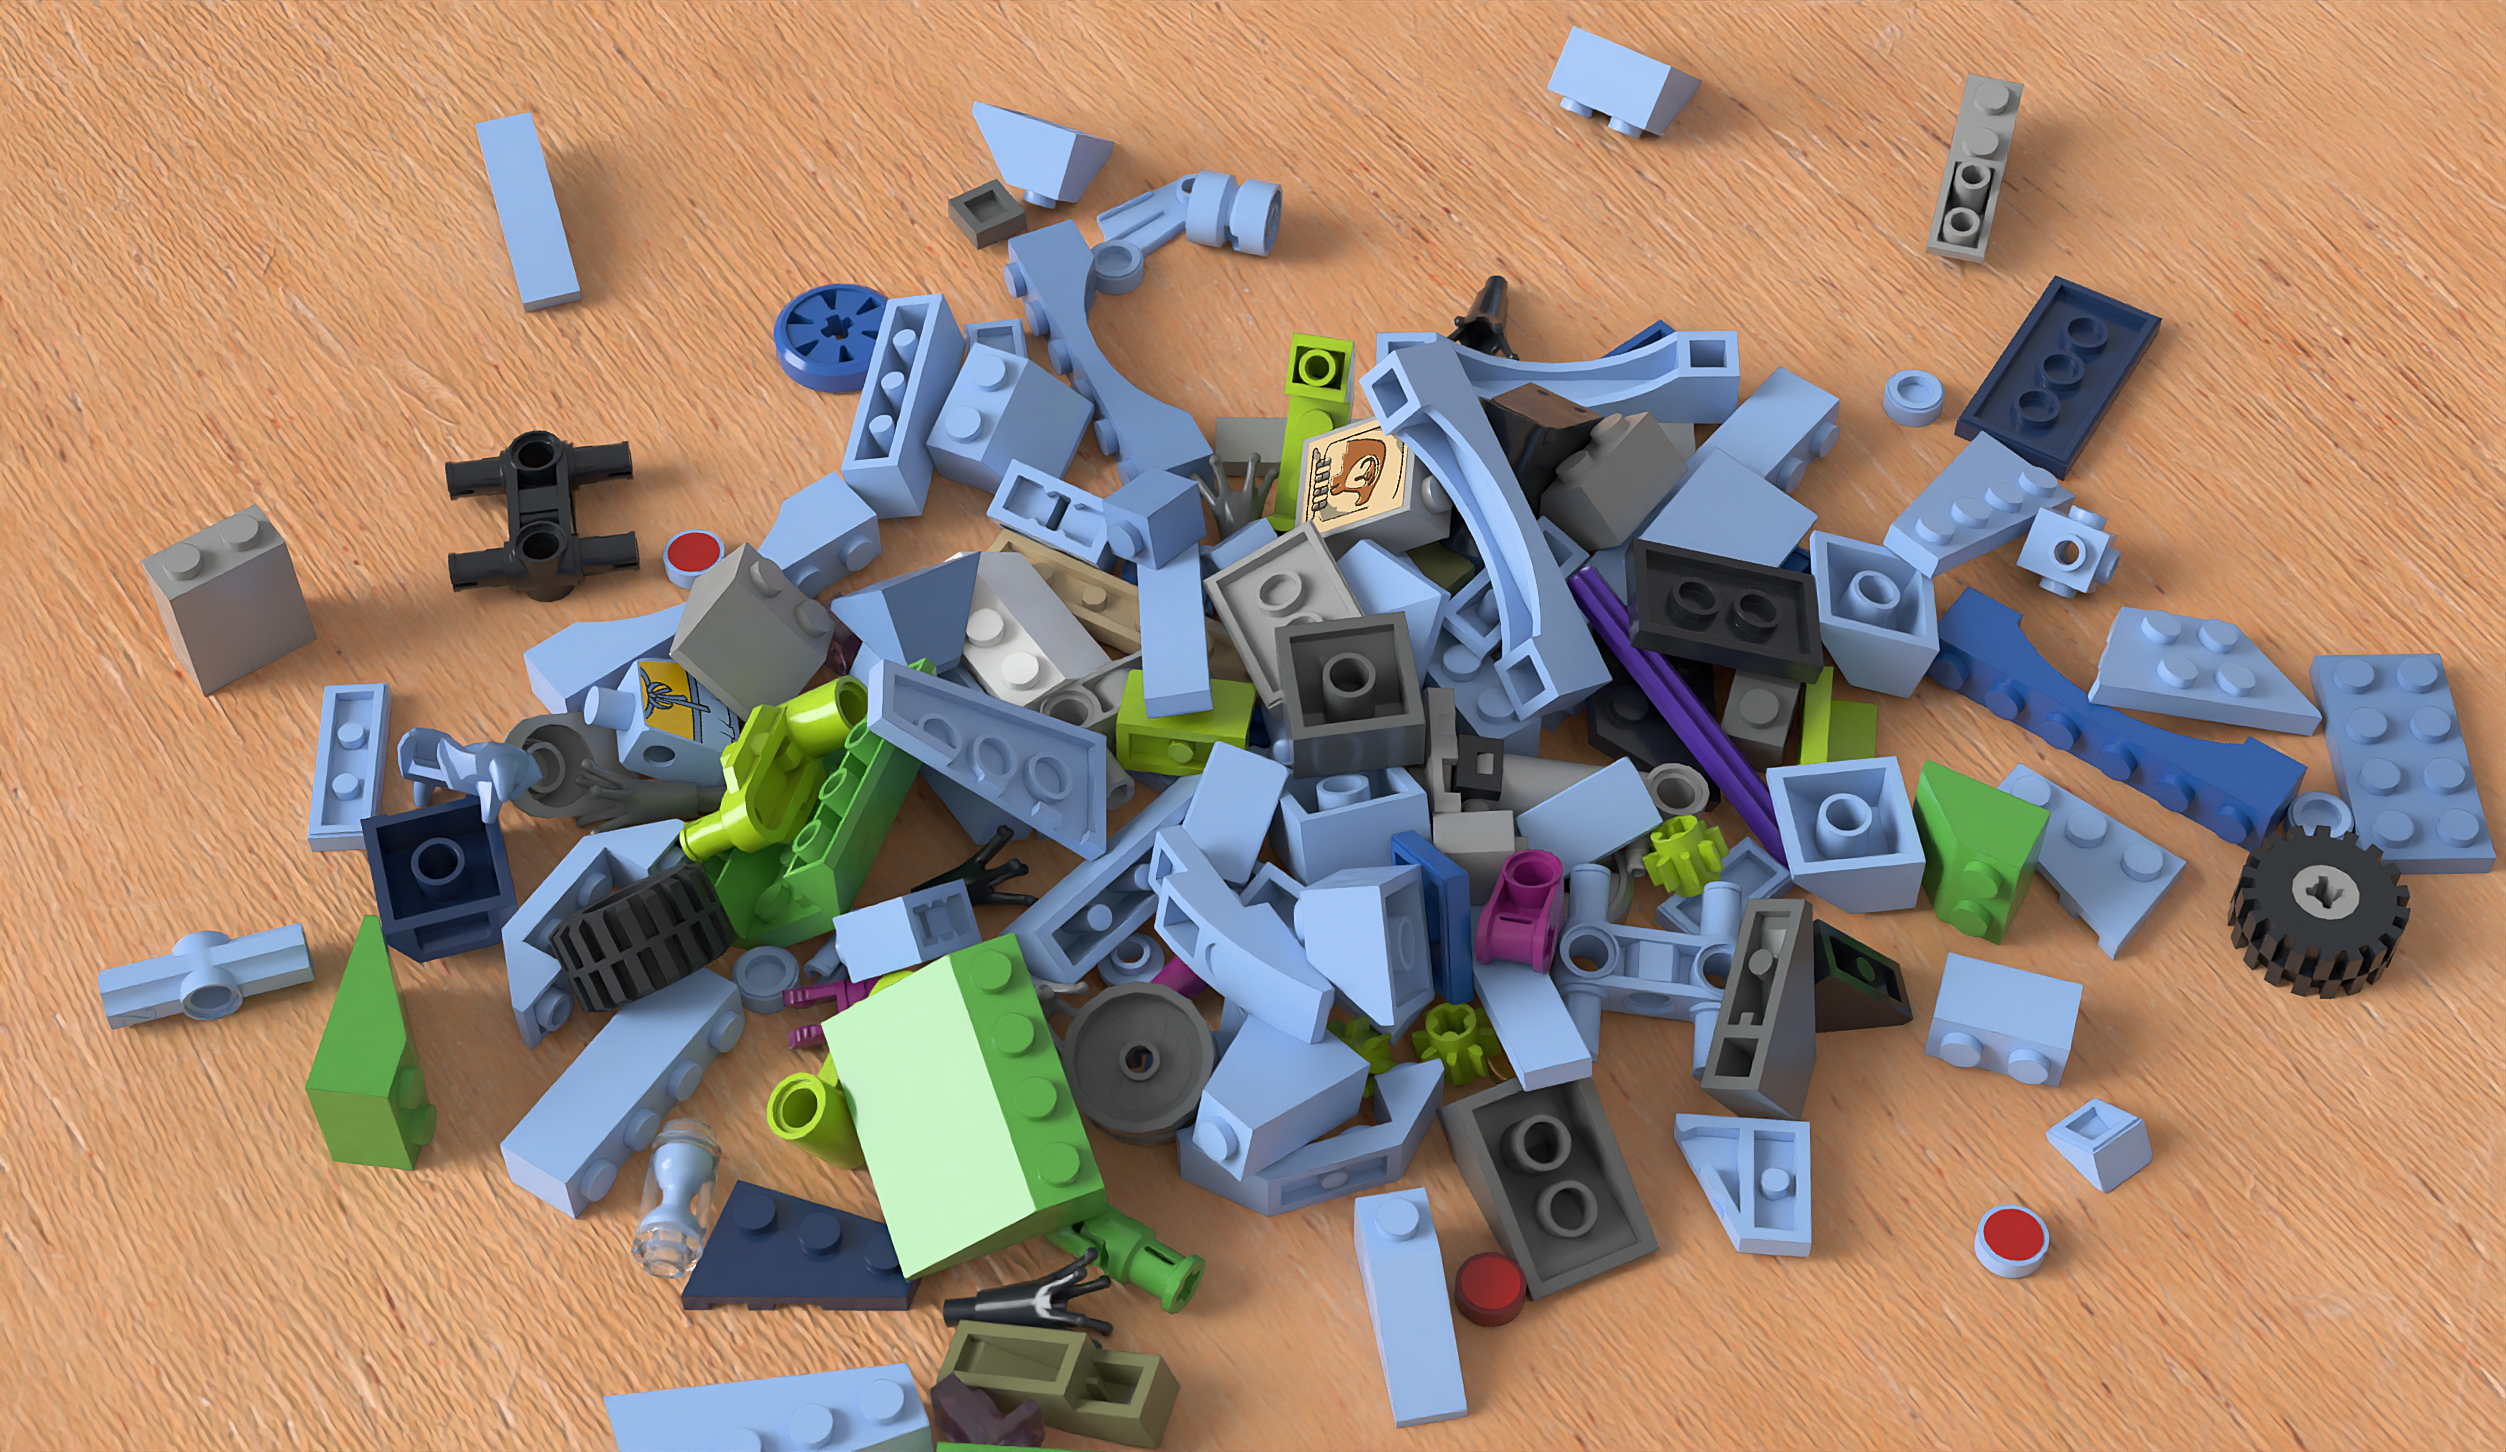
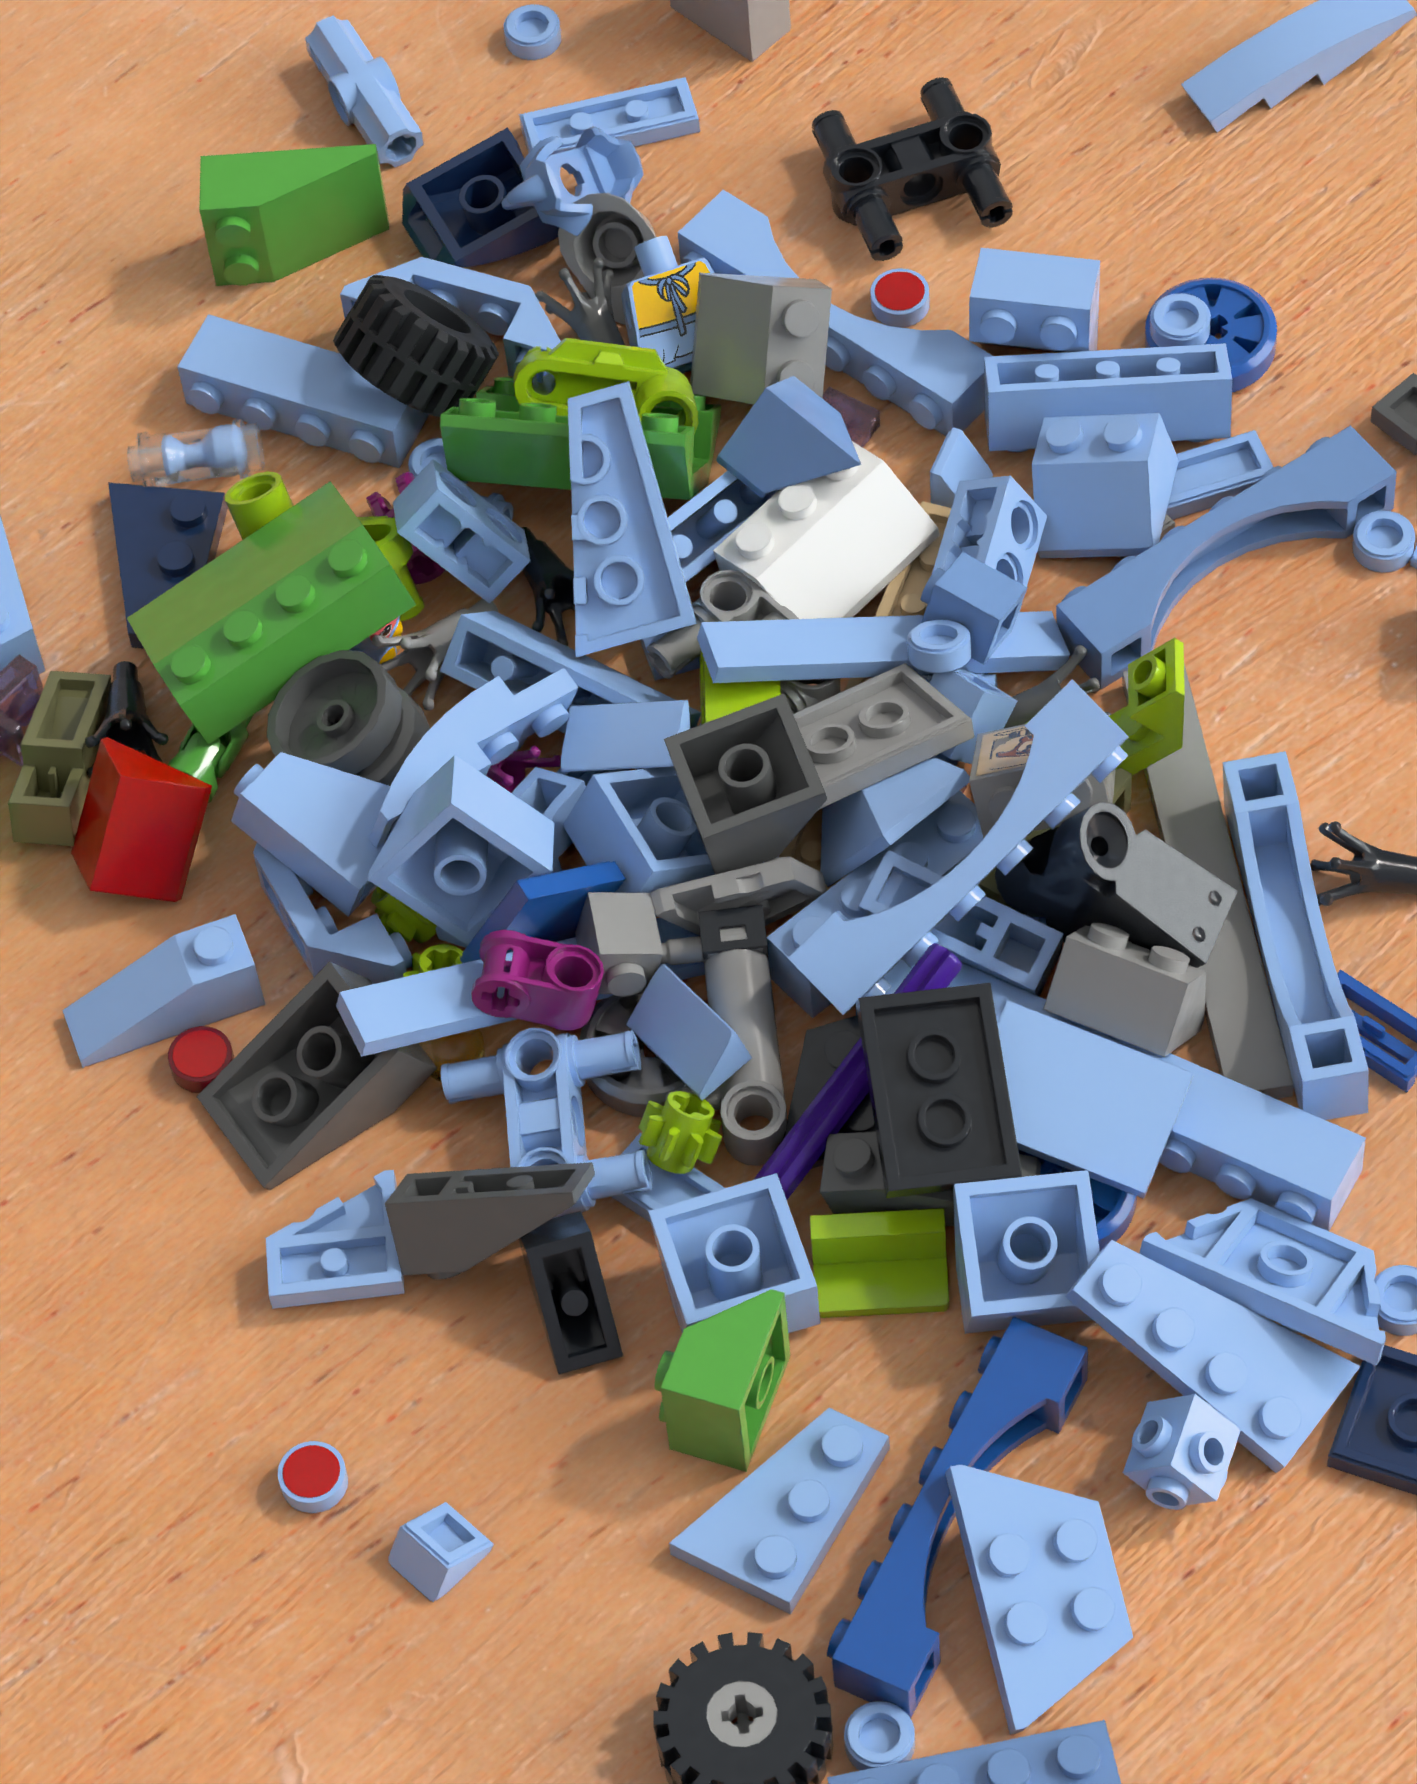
camera: 85 degrees right, 5 degrees up
(185, 817) = (532, 32): none -> light blue tile
(793, 422) = (1035, 301): none -> light blue slope
(835, 339) = (1180, 321): none -> light blue tile
(932, 543) = (954, 463): none -> light blue slope
(1194, 1297) = (138, 825): none -> red slope
(1199, 545) = (939, 646): none -> light blue tile
(1898, 451) = (1283, 1272): none -> light blue wing
(2003, 1020) = (550, 1441): light blue brick -> none

